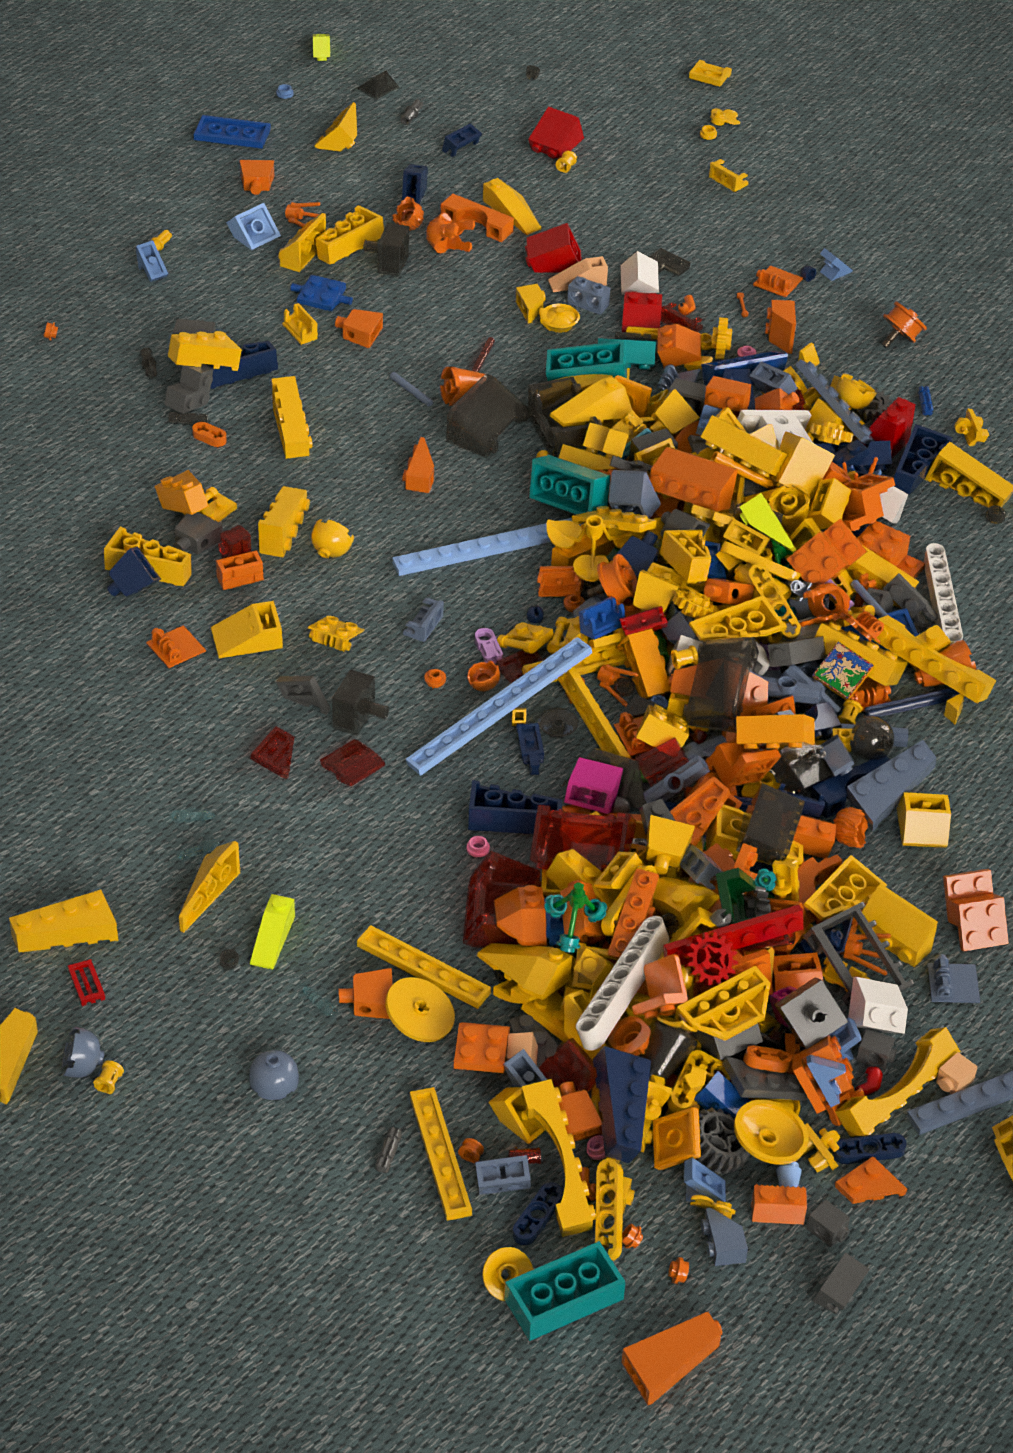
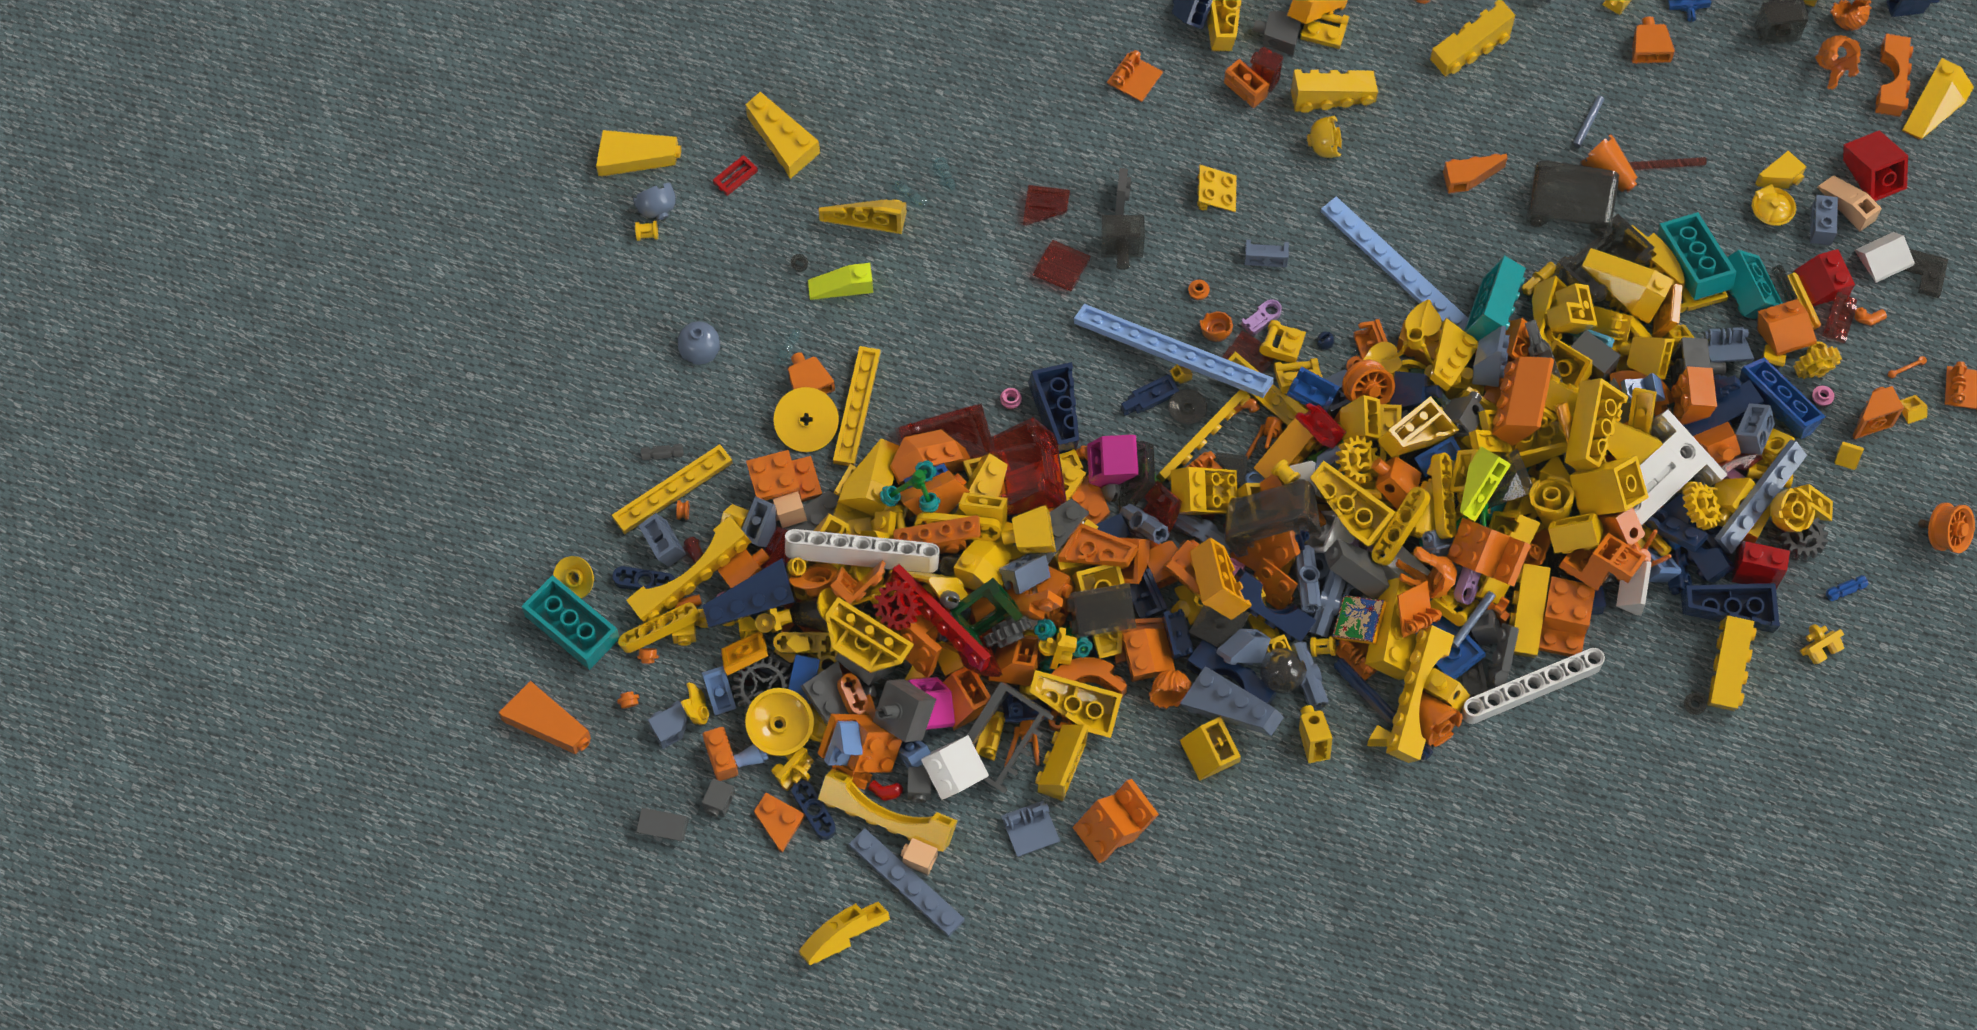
camera: 70 degrees right, 20 degrees up
(248, 631) = (1176, 124): yellow slope -> none
(614, 1042) = (796, 567): none -> yellow hinge
(942, 741) = (1315, 734): none -> yellow torso

